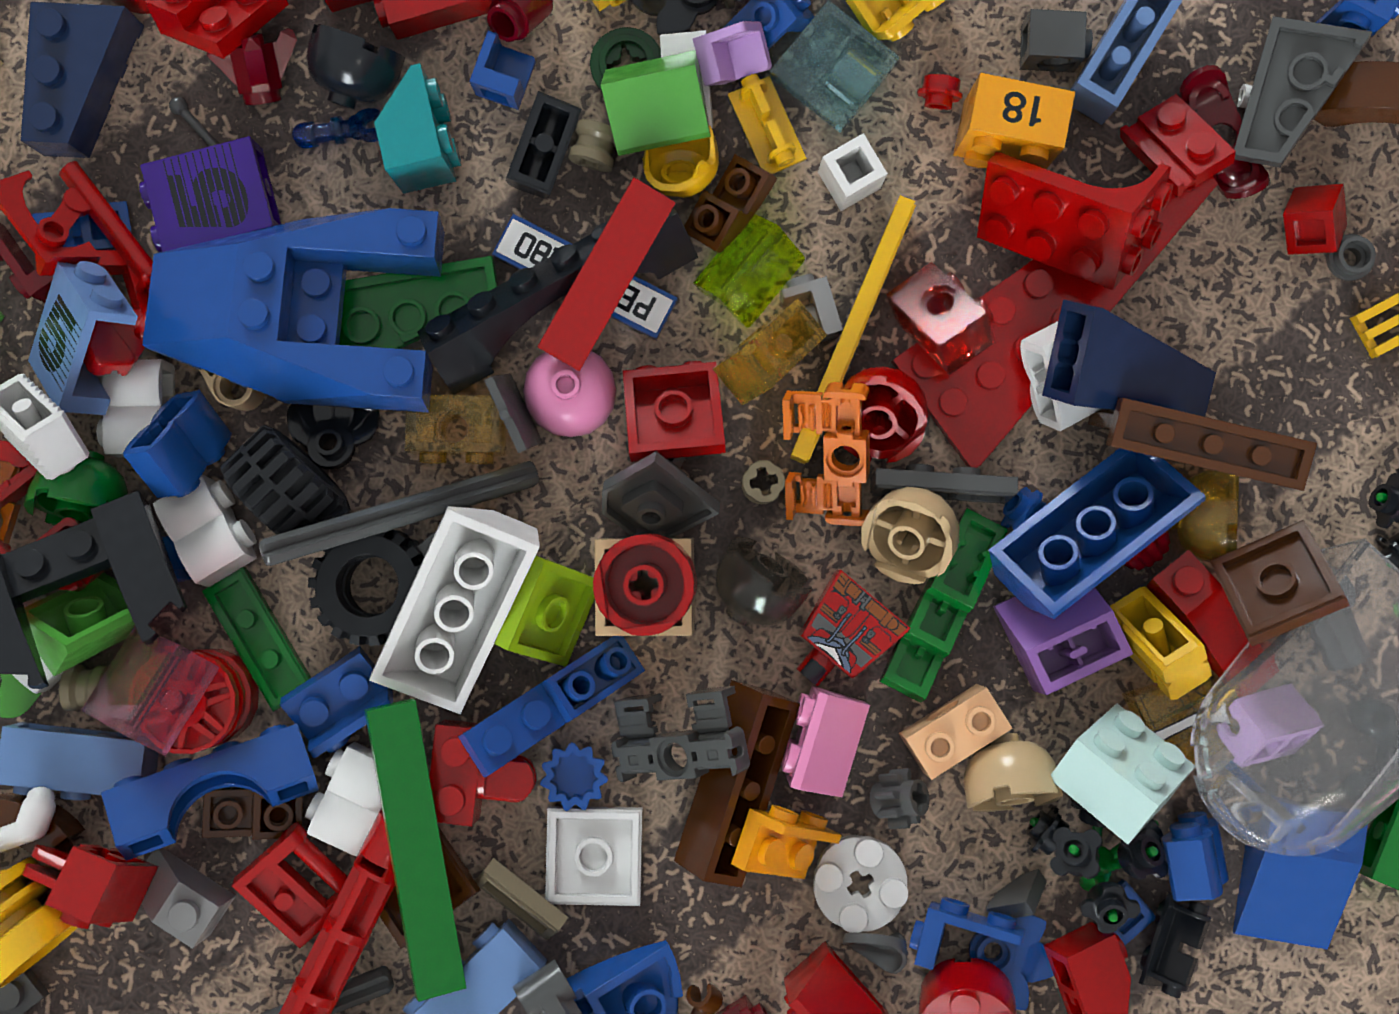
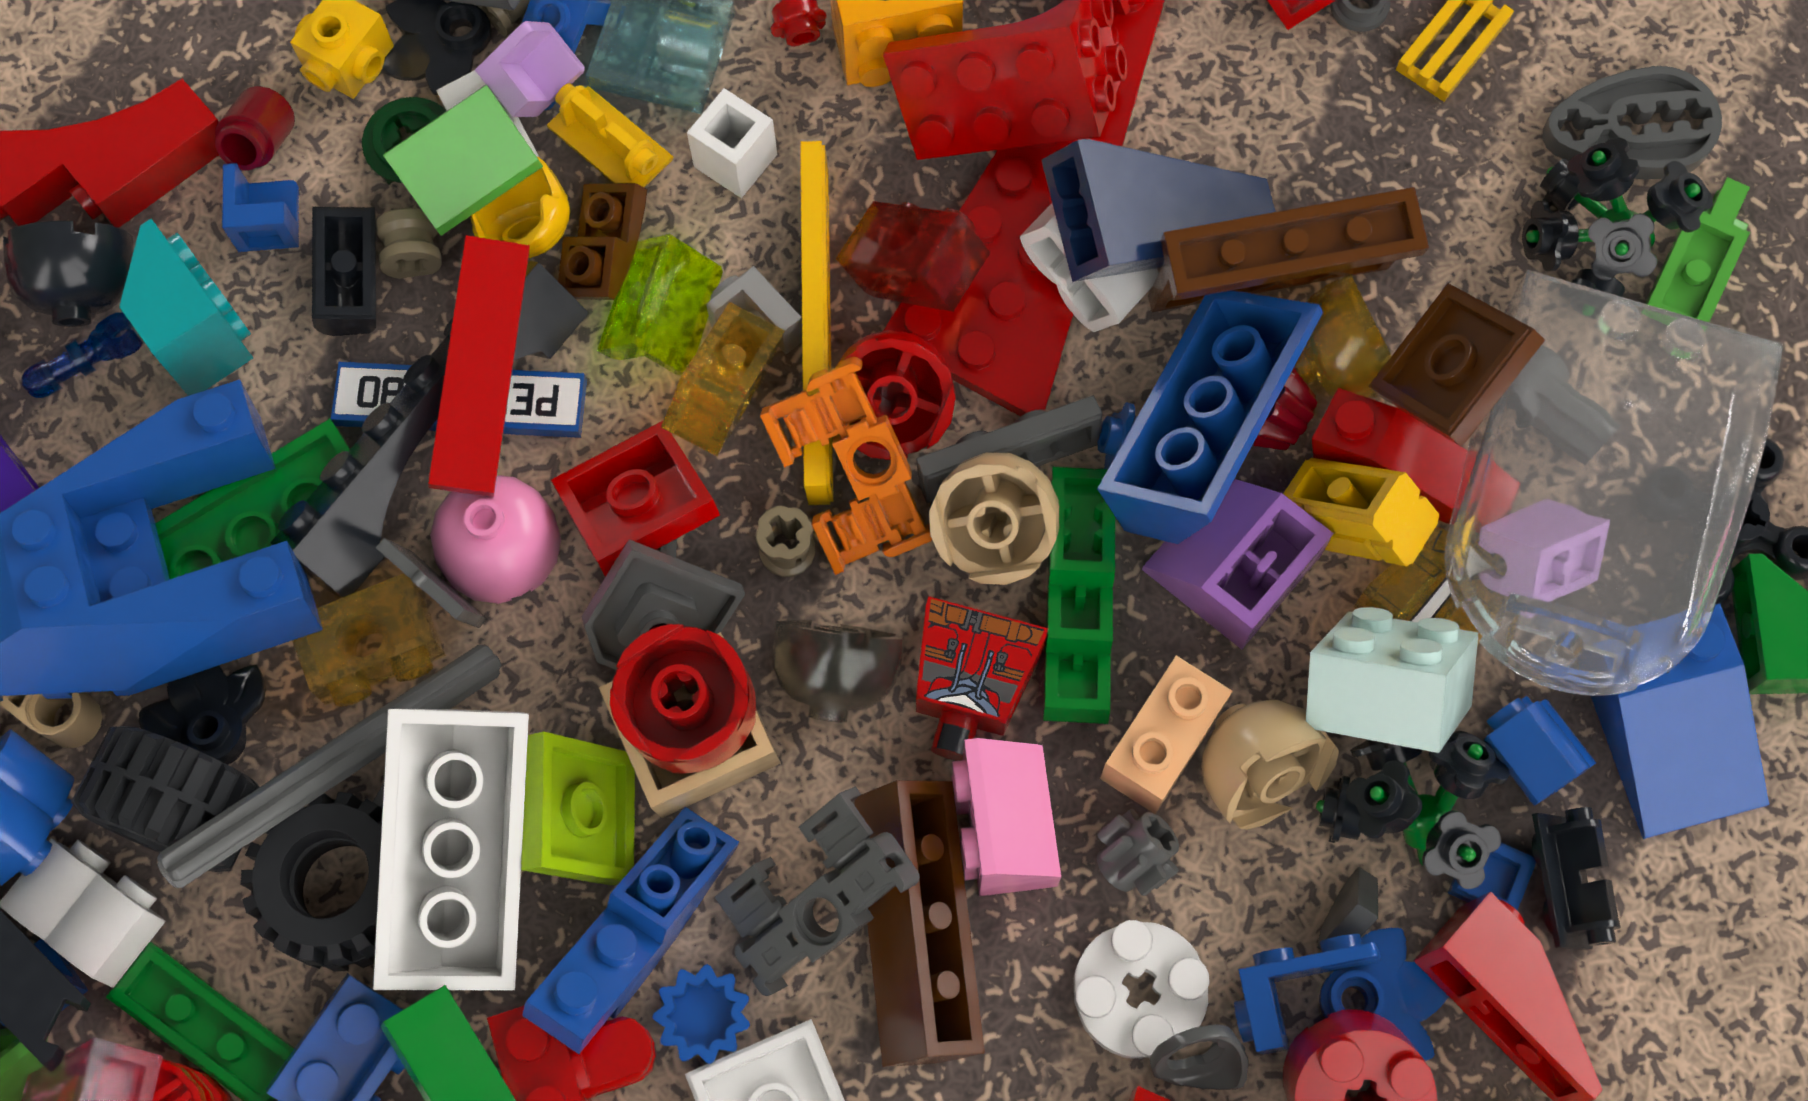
camera: 20 degrees left, 15 degrees down
(781, 841) = (1009, 969): light orange bracket -> none

